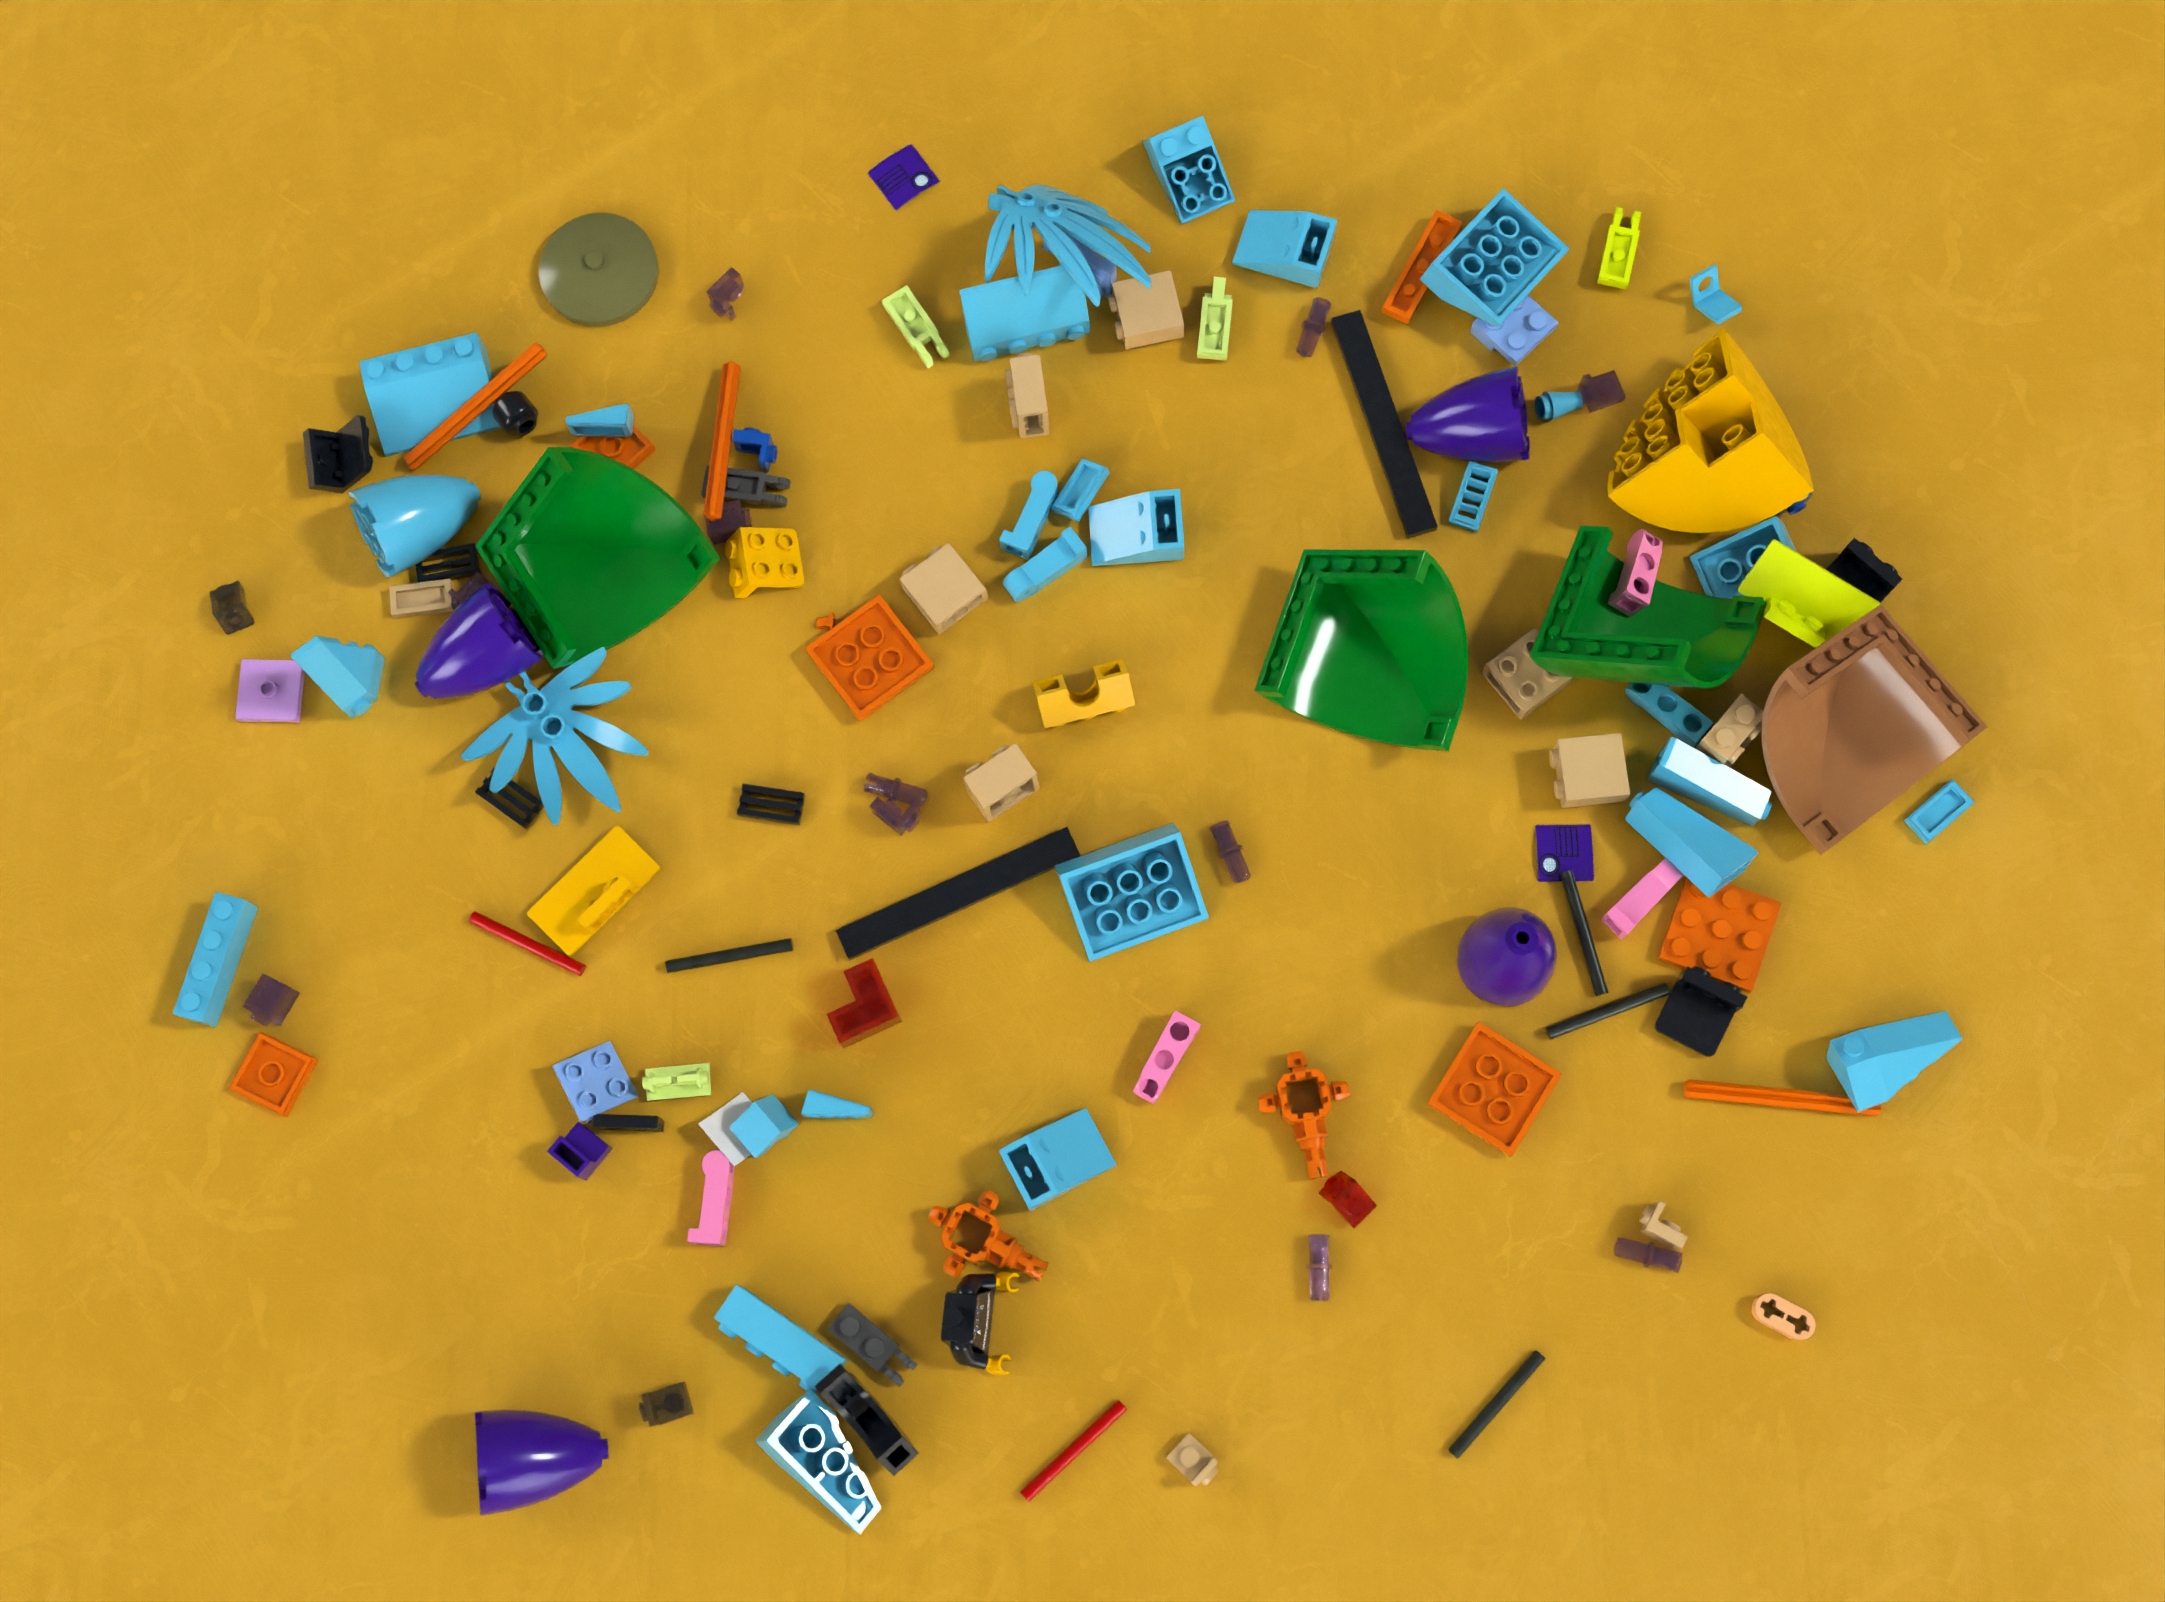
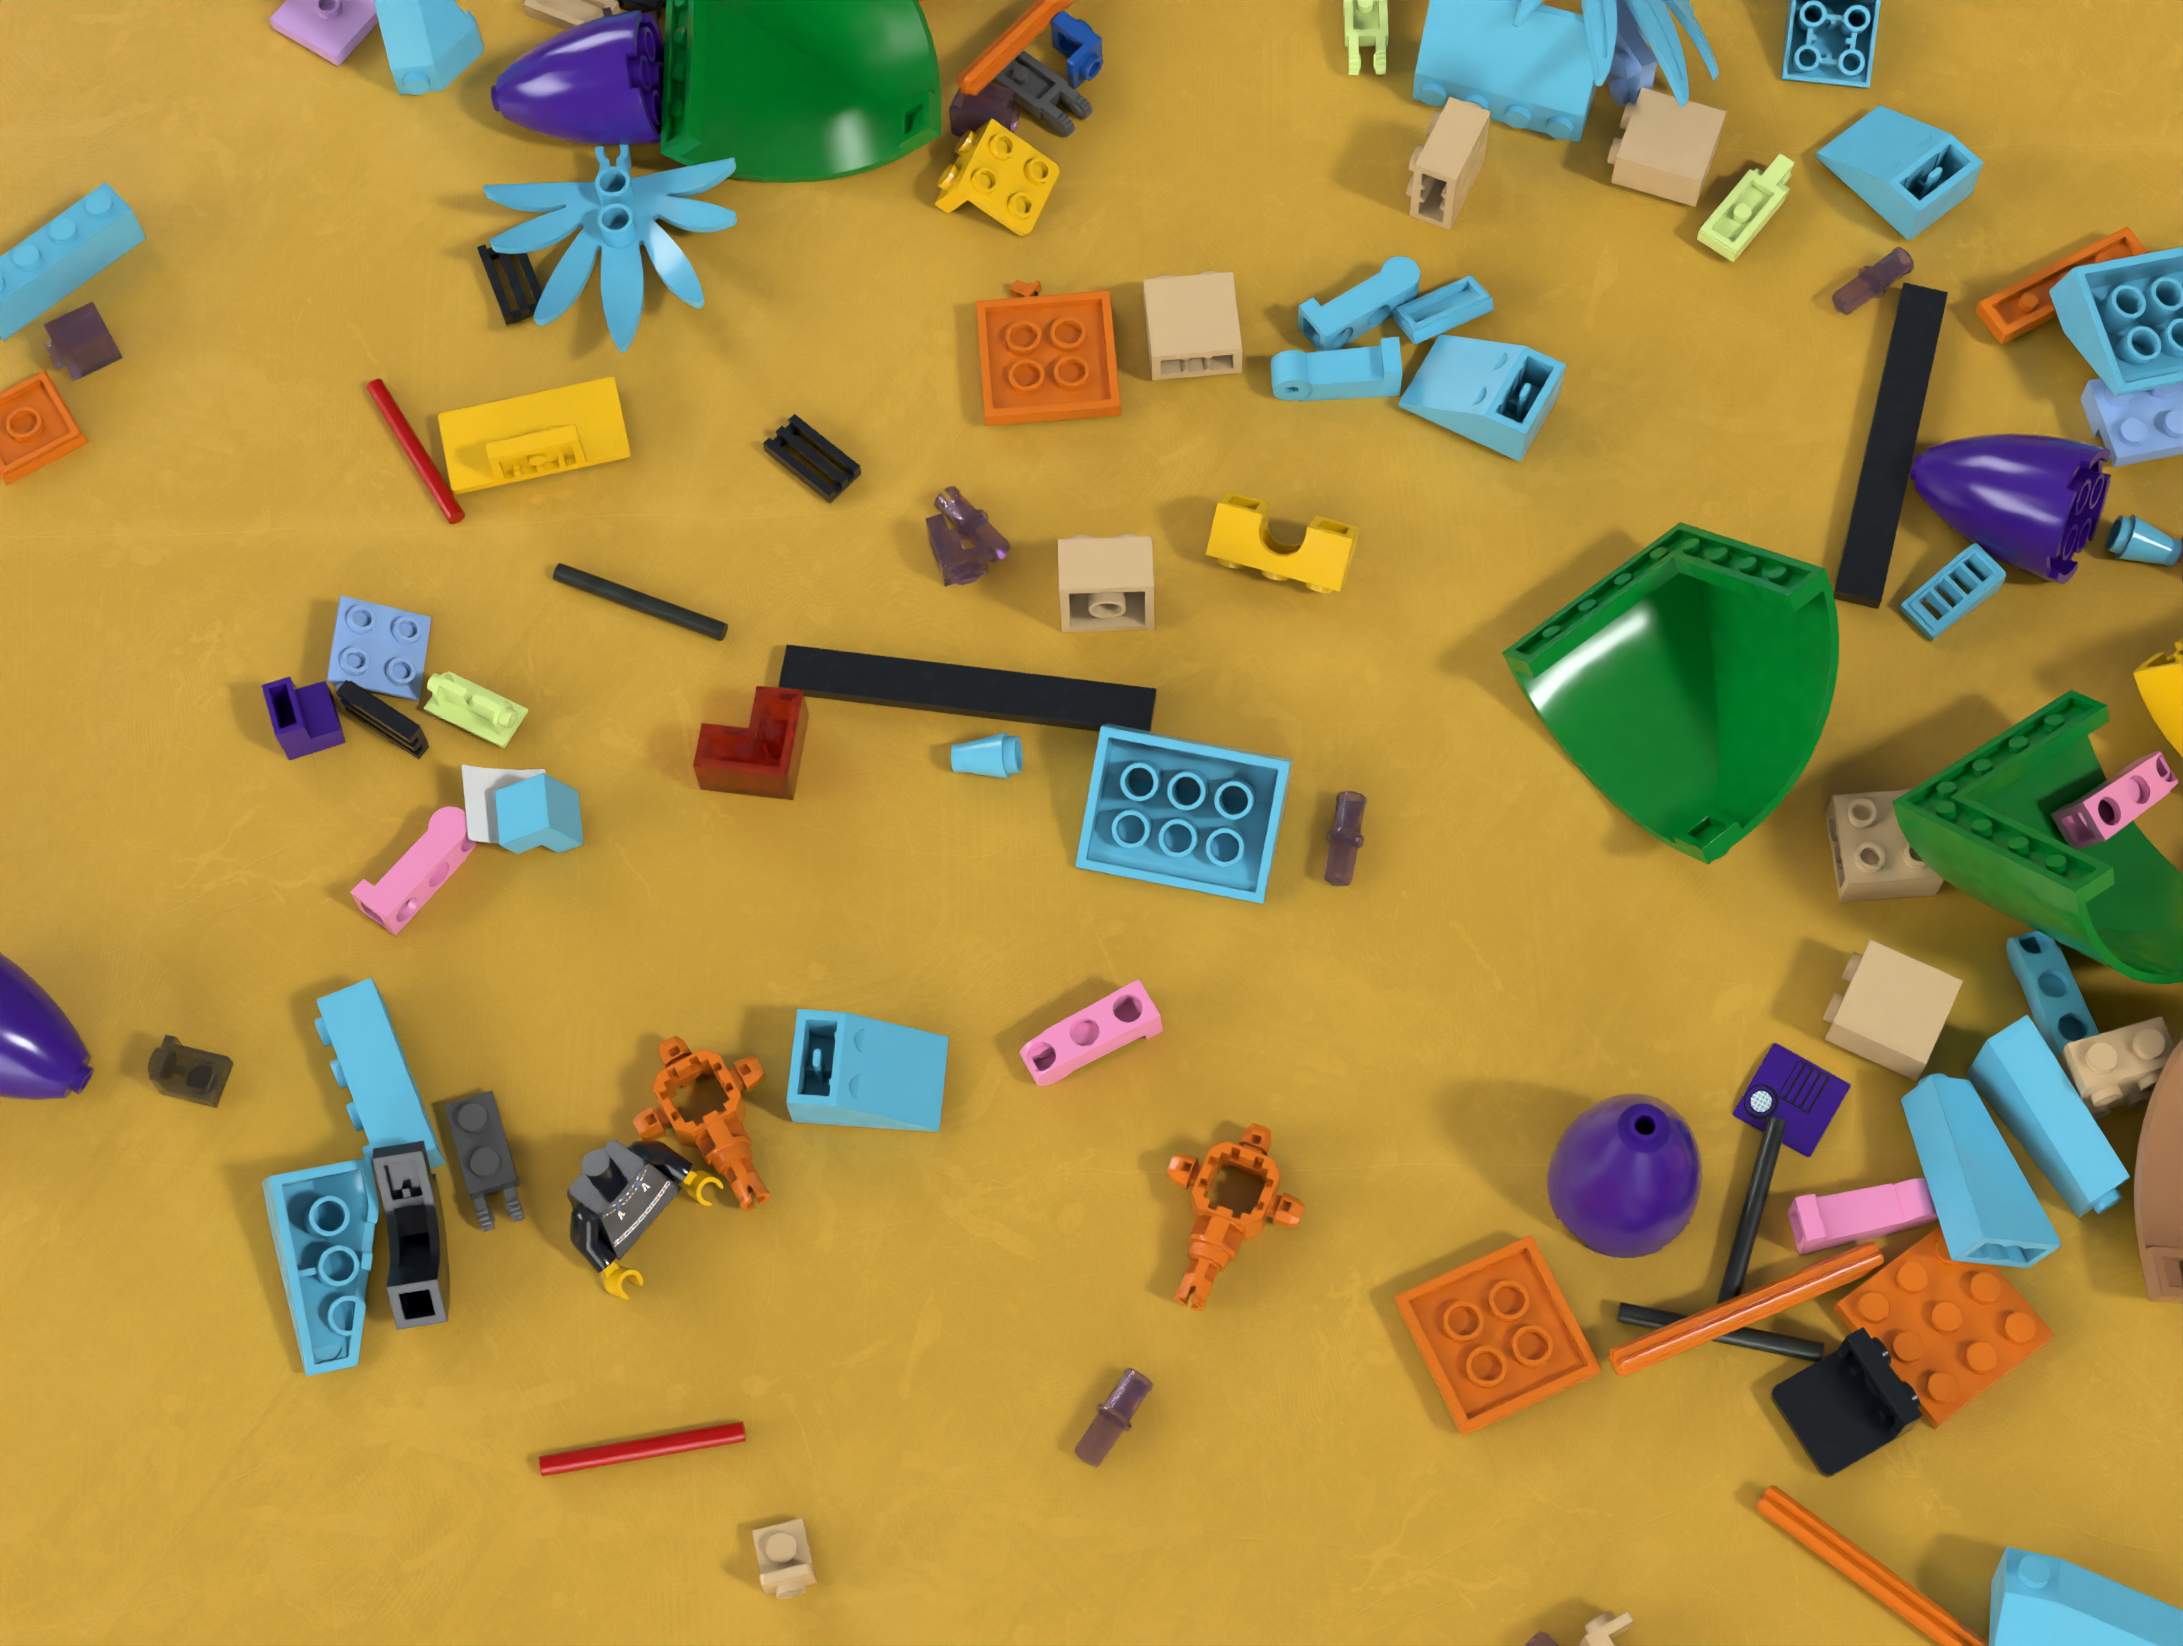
camera: 30 degrees right, 10 degrees down
(827, 1106) = (628, 840): medium azure slope -> none
(999, 926) = (989, 756): none -> medium azure cone
(1347, 1198) = (1209, 1354): clear red bracket -> none
(1615, 991) = (1745, 1309): none -> orange axle

